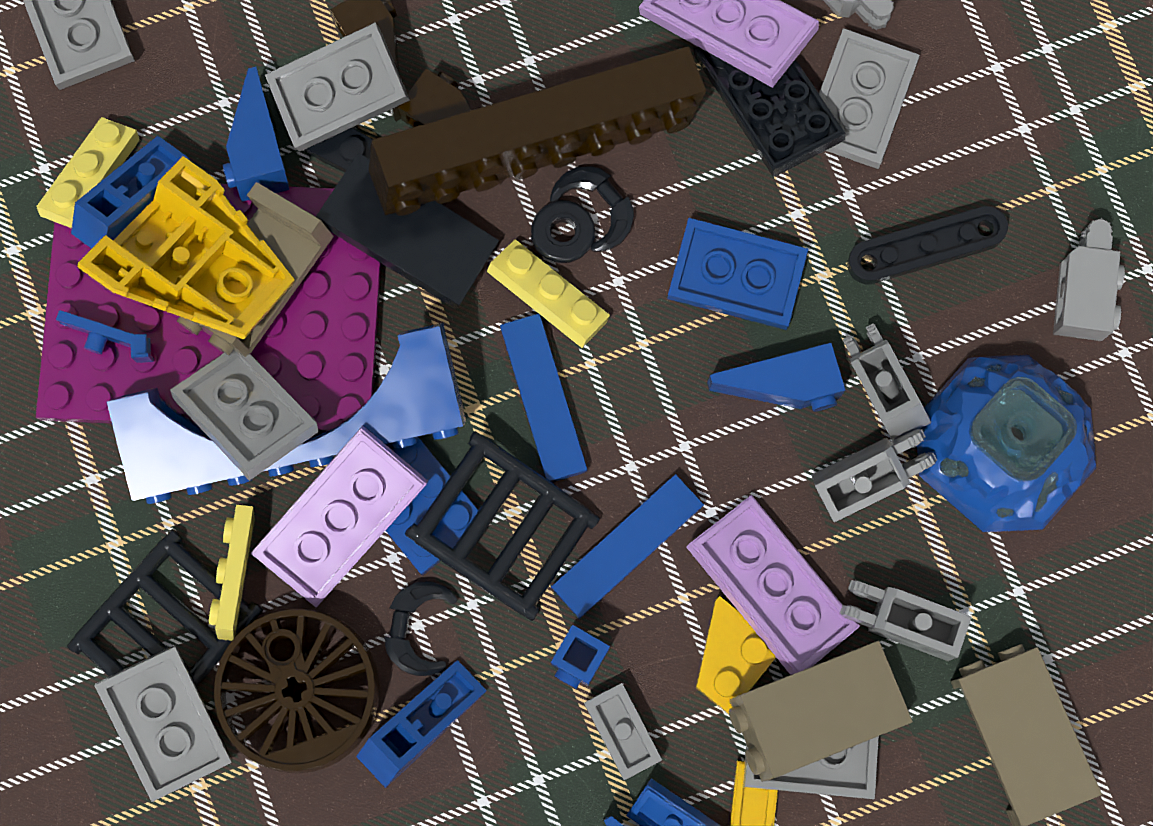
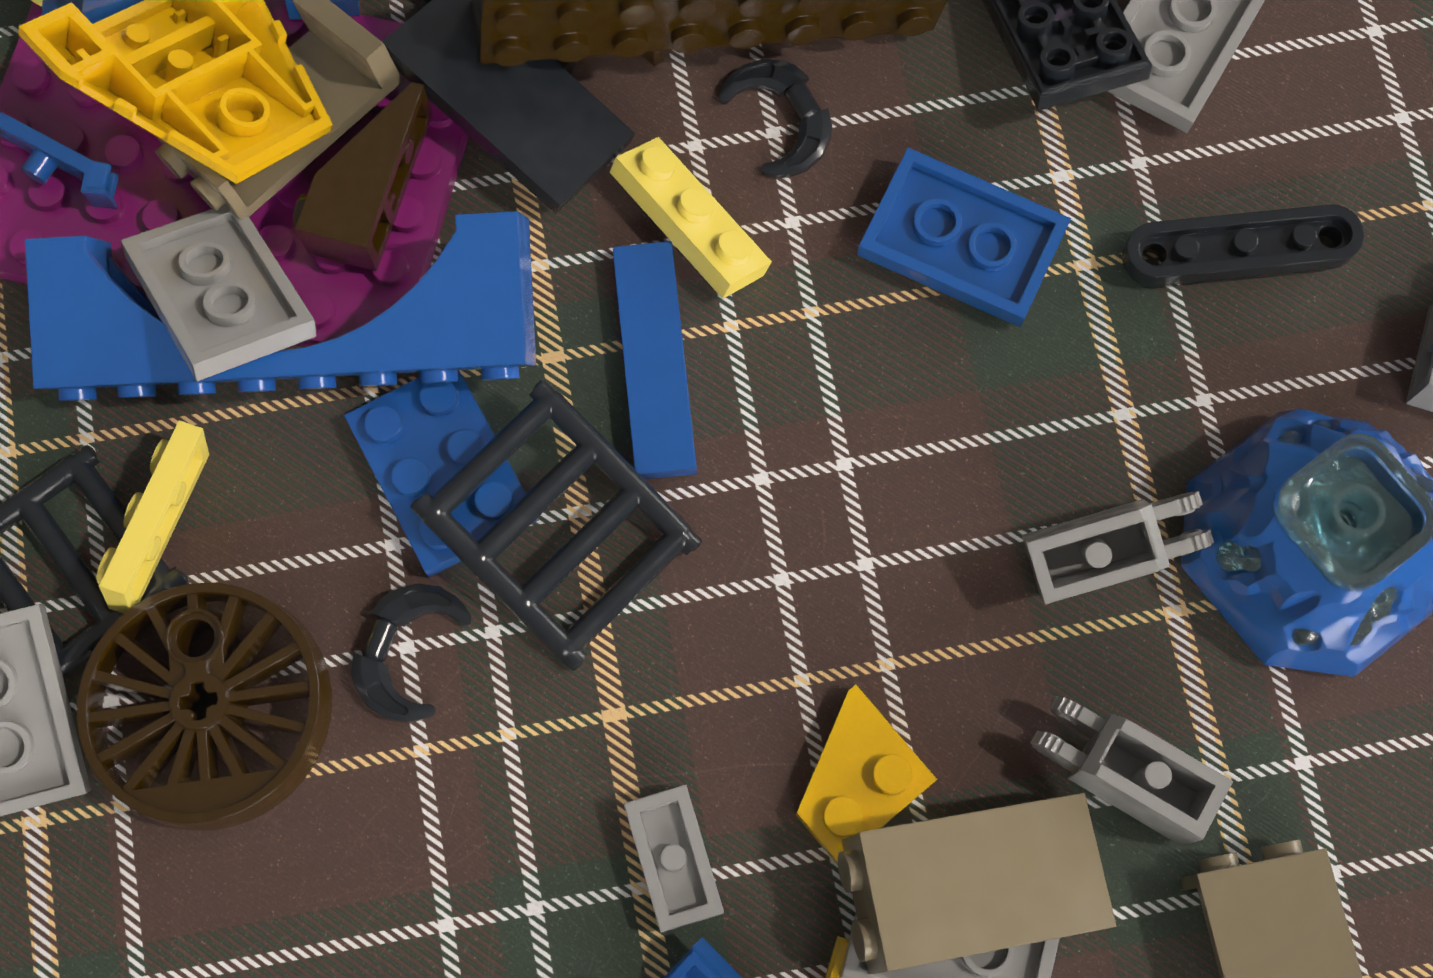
camera: 10 degrees right, 5 degrees down
(322, 321) = (363, 185): none -> dark brown slope
(339, 516) = (322, 464): lavender tile -> none
(420, 723) = (373, 789): blue slope -> none
(560, 212) = (733, 115): black piece -> none
(579, 657) = (629, 733): blue brick -> none
(627, 546) = (733, 589): blue tile -> none
(772, 586) = (937, 686): lavender tile -> none
(789, 380) = (1012, 394): blue slope -> none
(887, 385) = (1157, 424): light grey hinge -> none

